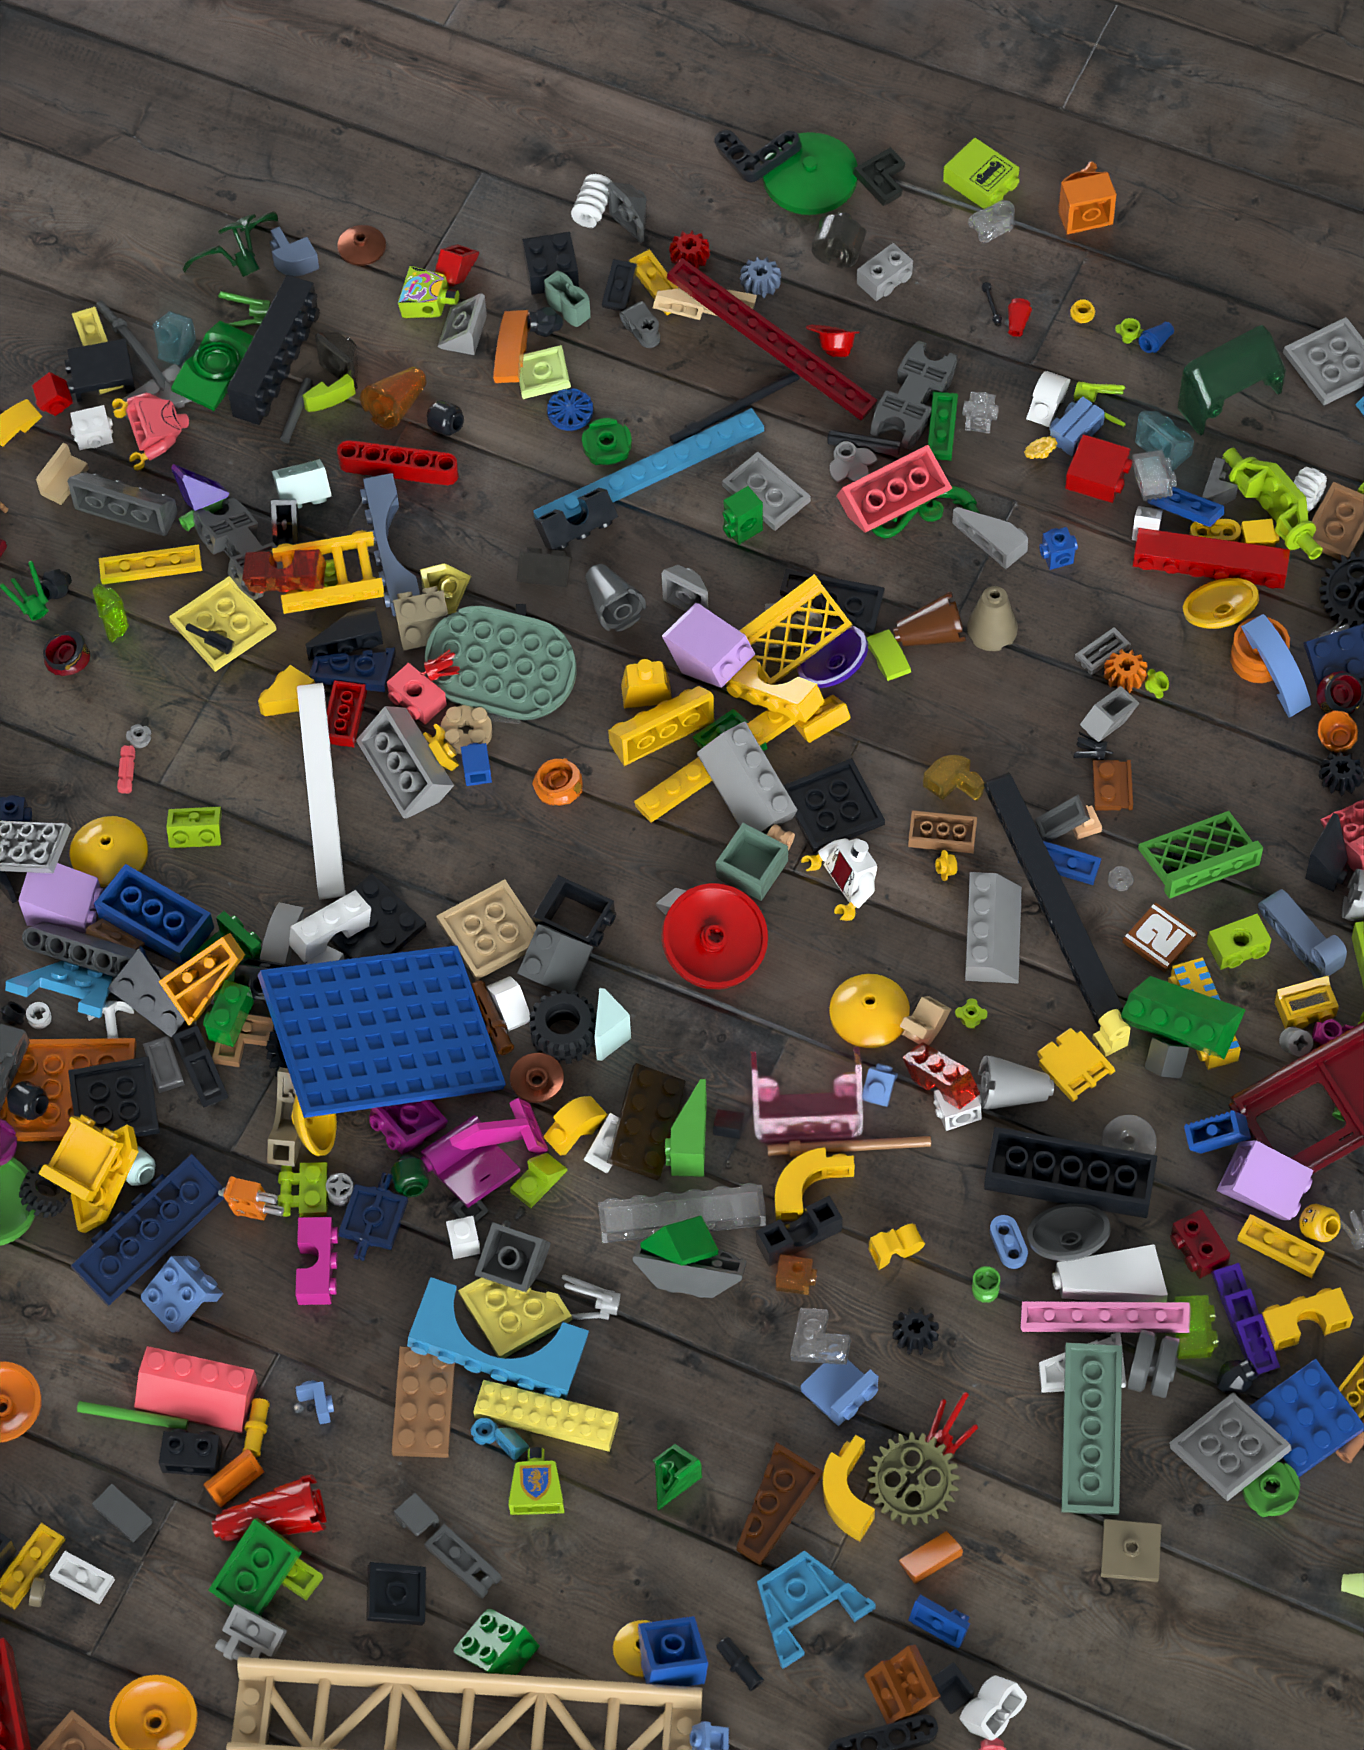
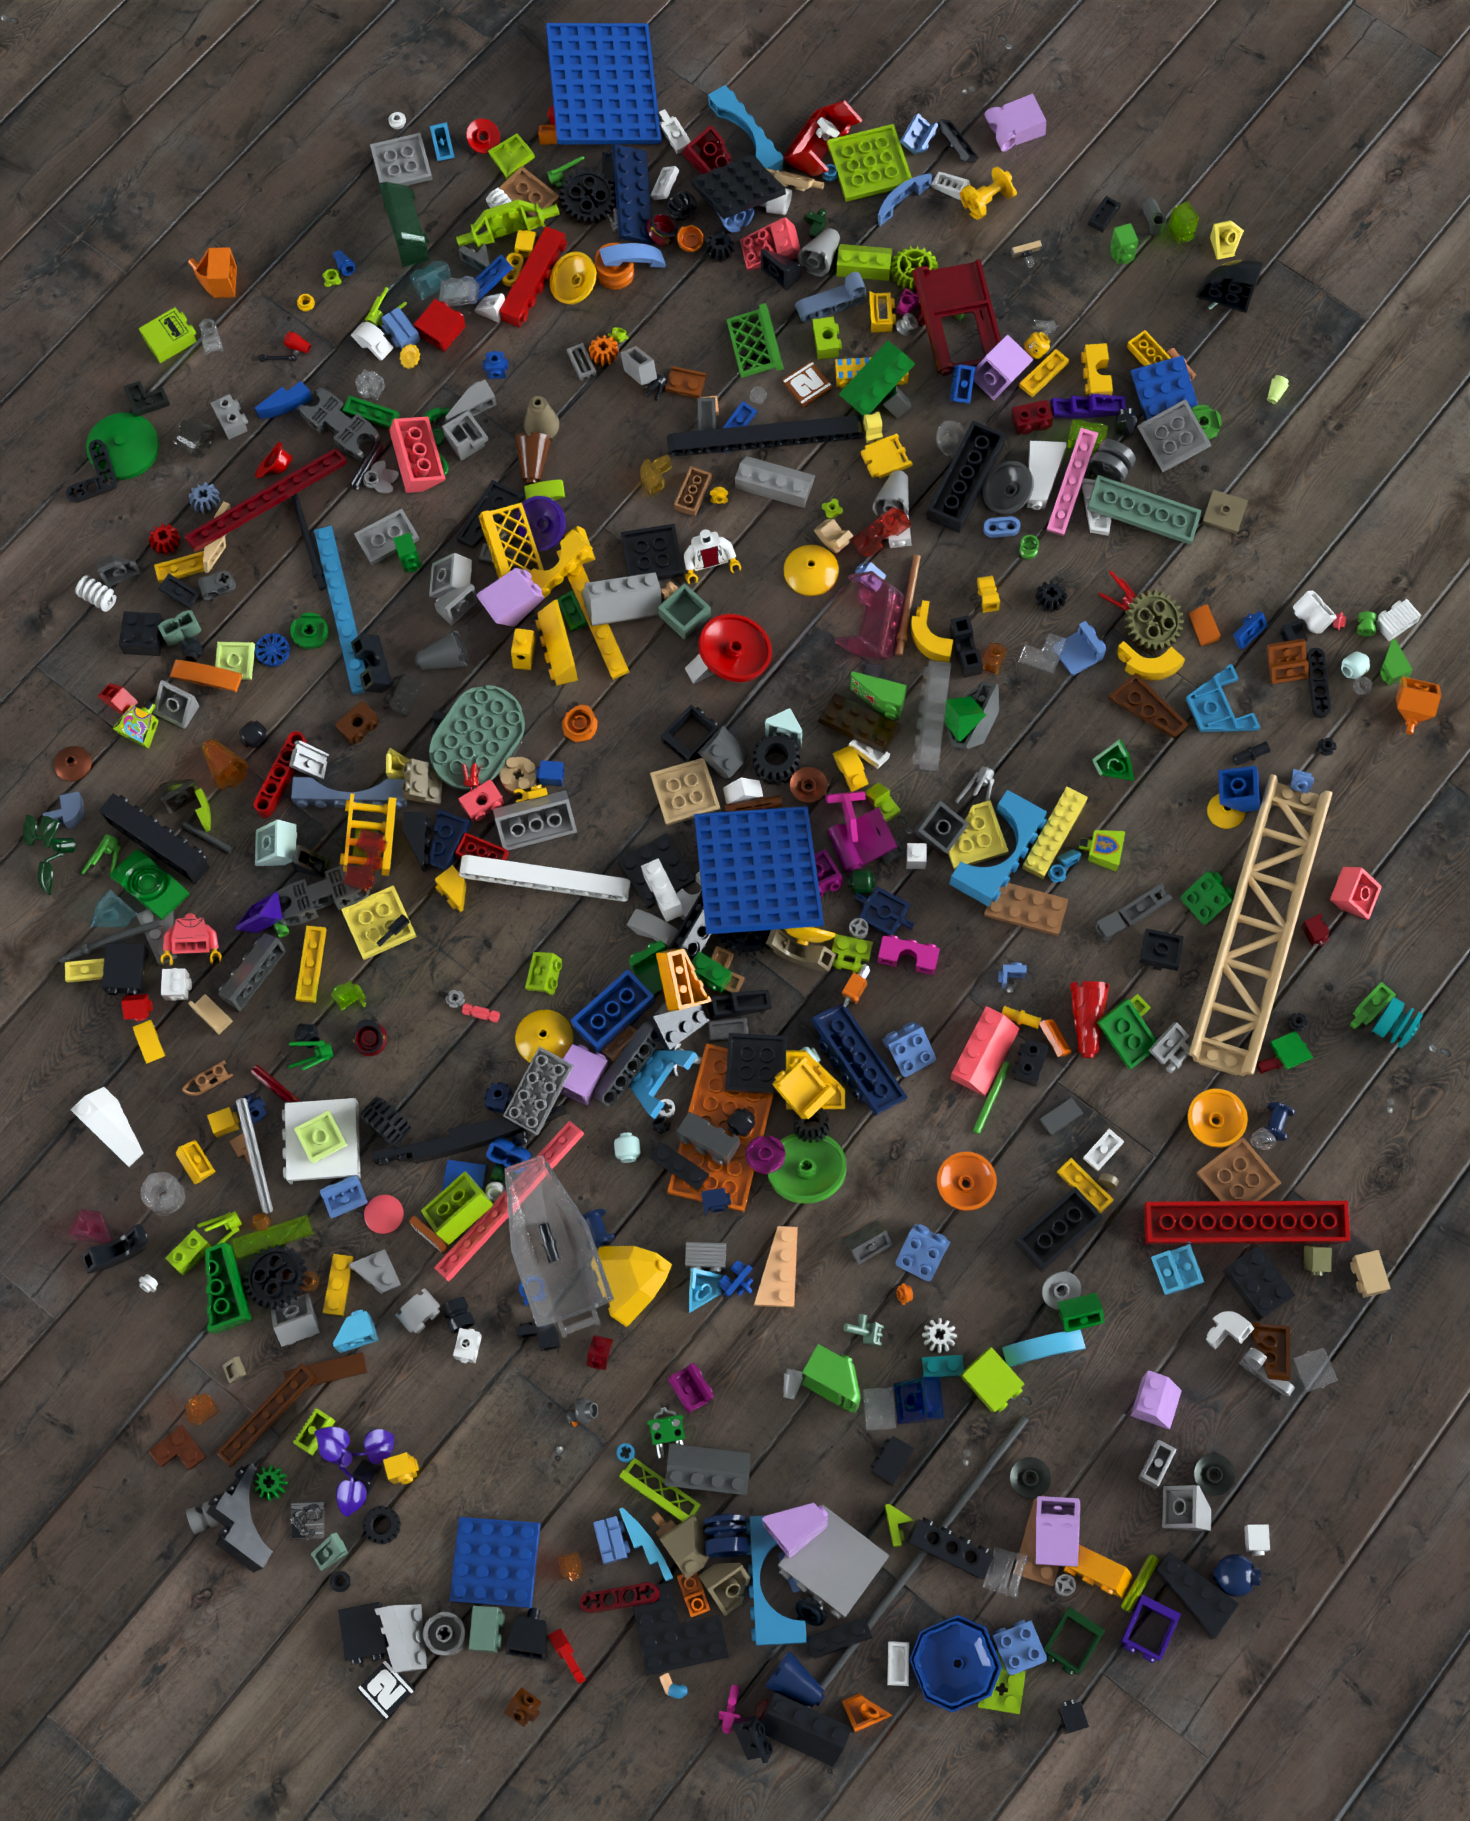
camera: 75 degrees left, 10 degrees up
(421, 485) = (309, 760): none -> plate
(483, 516) = (359, 713): none -> reddish brown brick
(728, 578) = (449, 574): none -> light grey slope
(927, 325) = (283, 401): none -> blue slope
(937, 536) = (464, 435): none -> light grey plate

